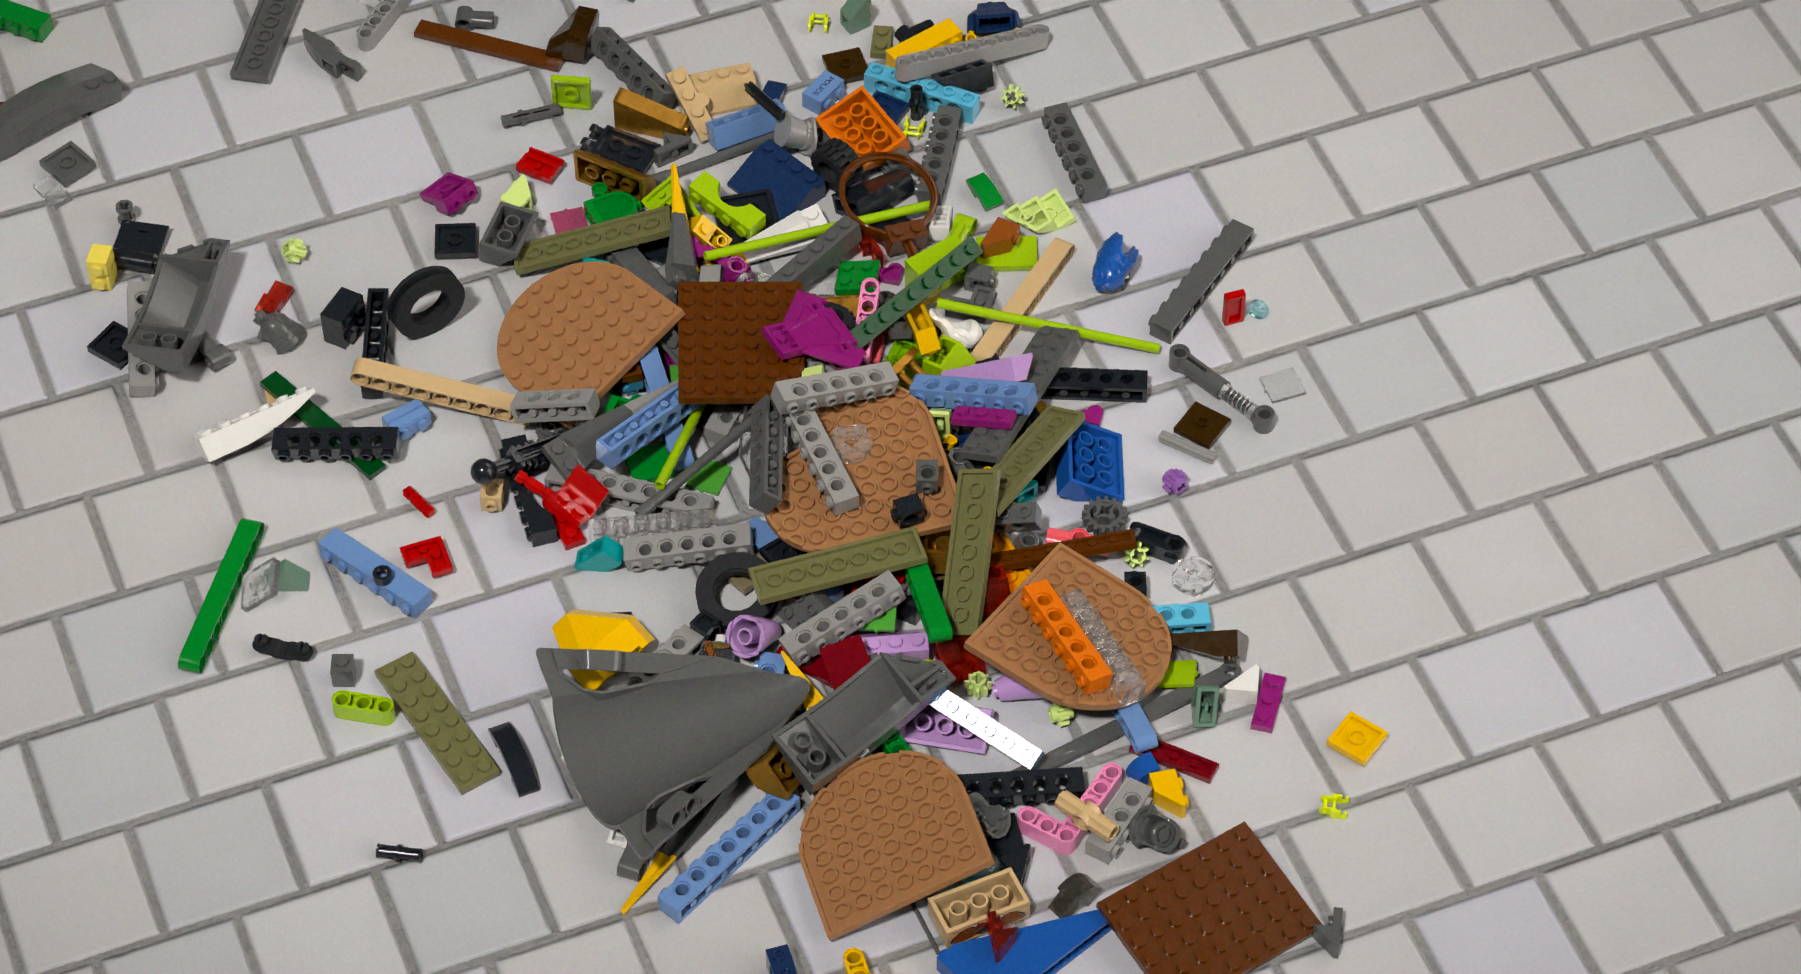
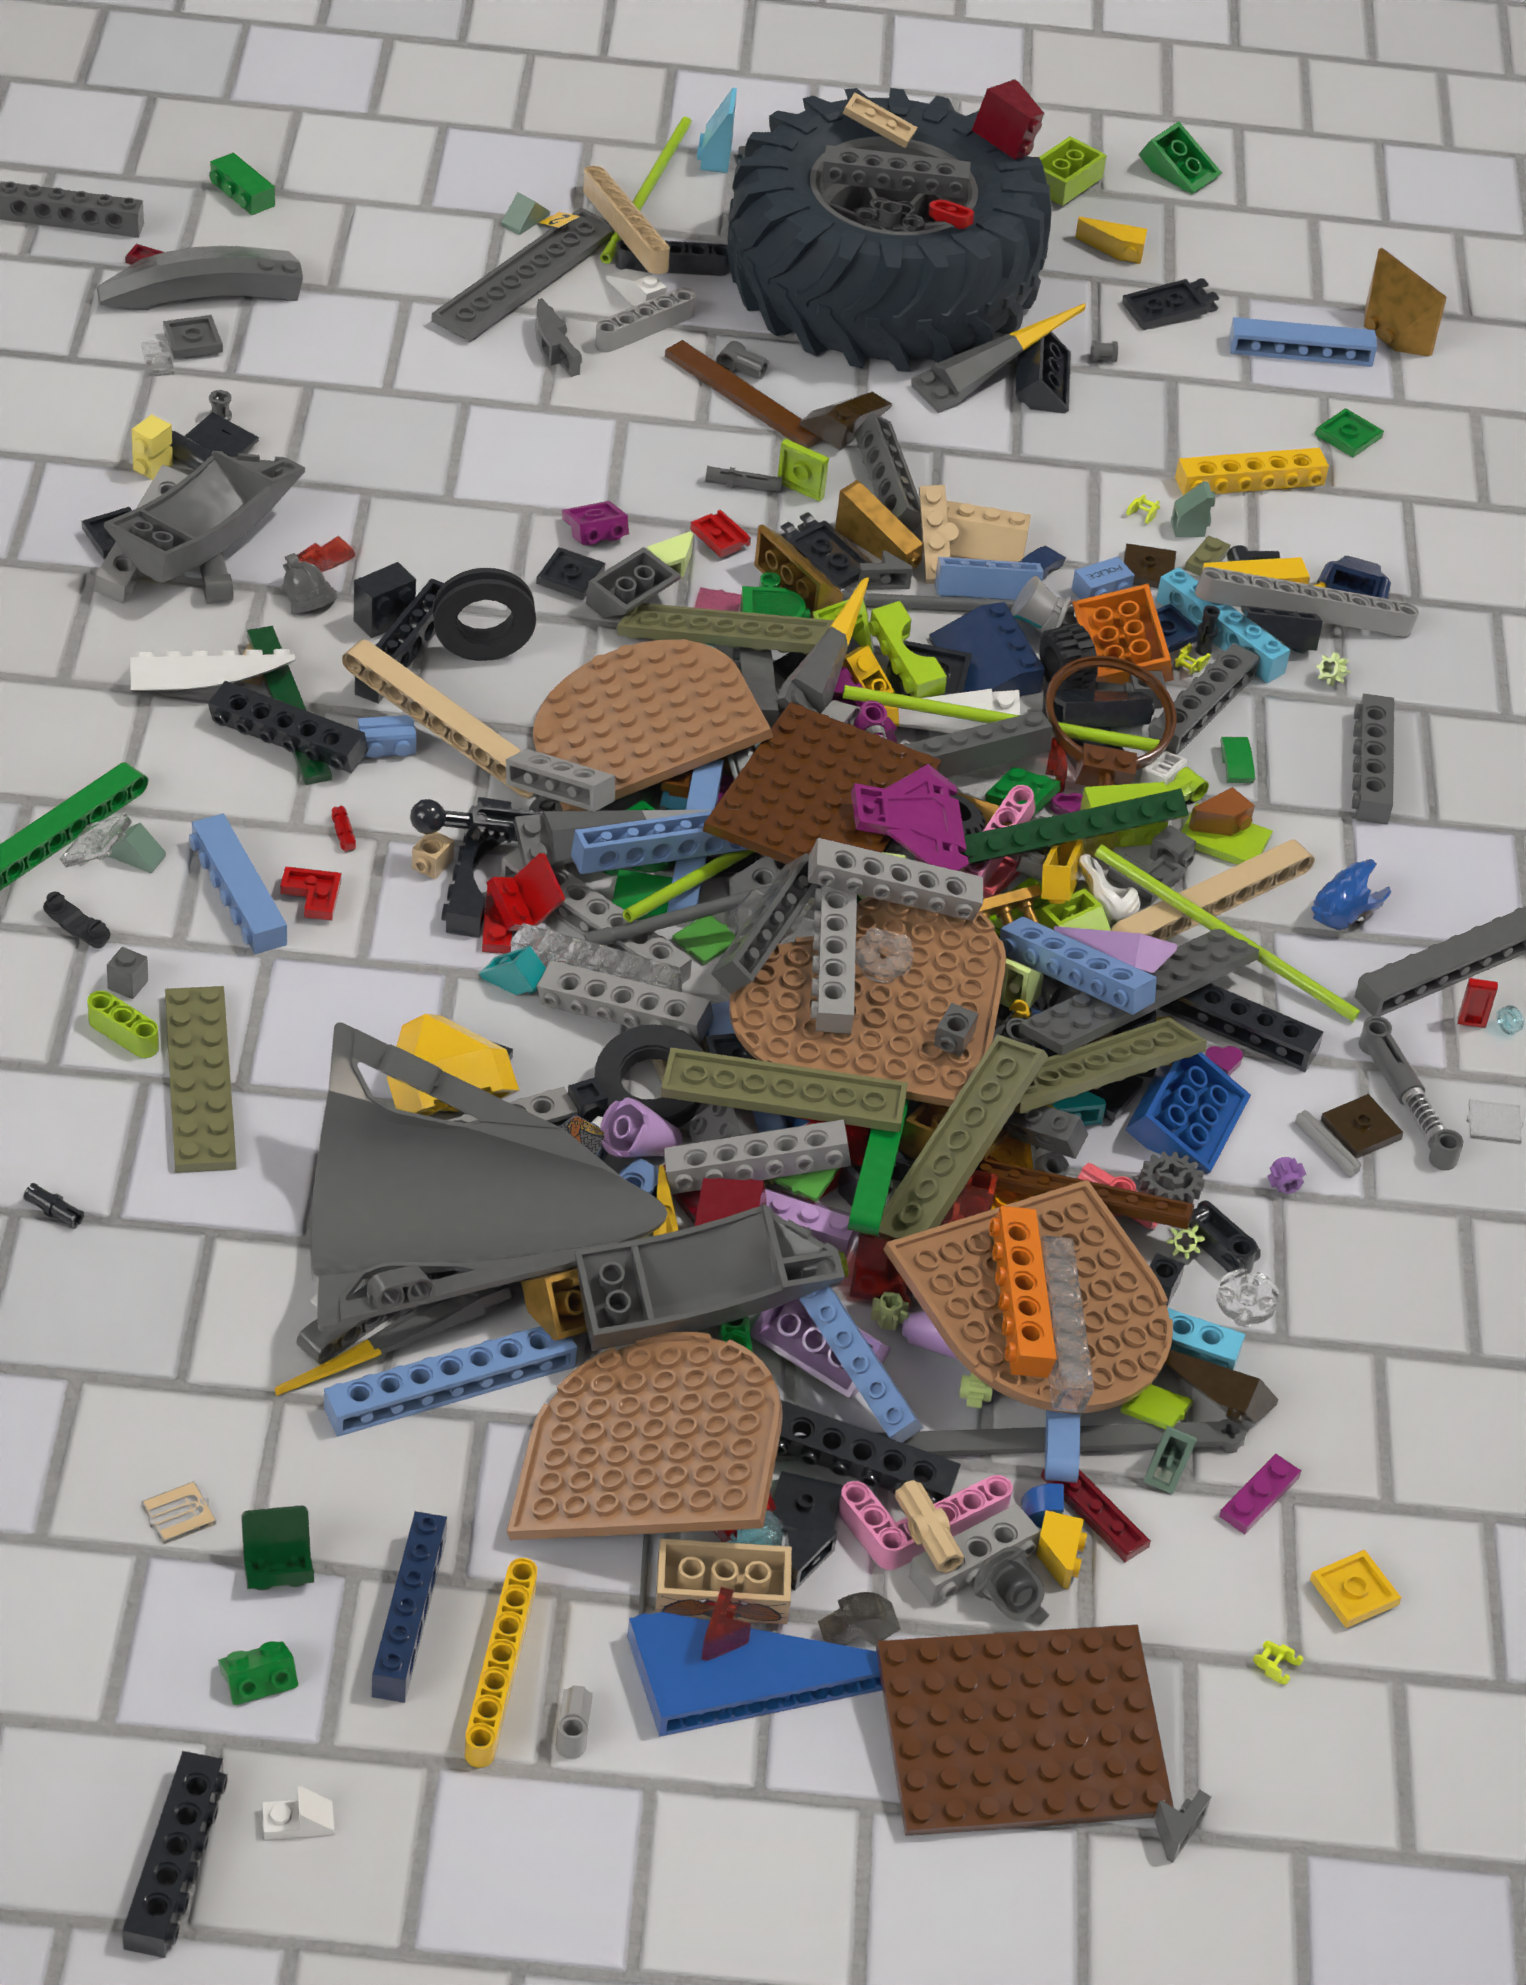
camera: 20 degrees right, 5 degrees down
(294, 250) = (379, 512): yellowish green gear -> none
(382, 569) = (237, 878): black axle -> none
(515, 759) = (262, 1158): black slope -> none
(533, 485) = (482, 857): red axle -> none
(764, 100) = (1021, 558): black axle -> none
(908, 510) = (907, 1060): black brick -> none
(983, 417) = (1073, 995): magenta plate -> none
(992, 818) = (797, 1474): dark grey helmet -> none
(1042, 214) = (1295, 811): yellowish green slope -> none
(1243, 688) = (1236, 1459): white slope -> none

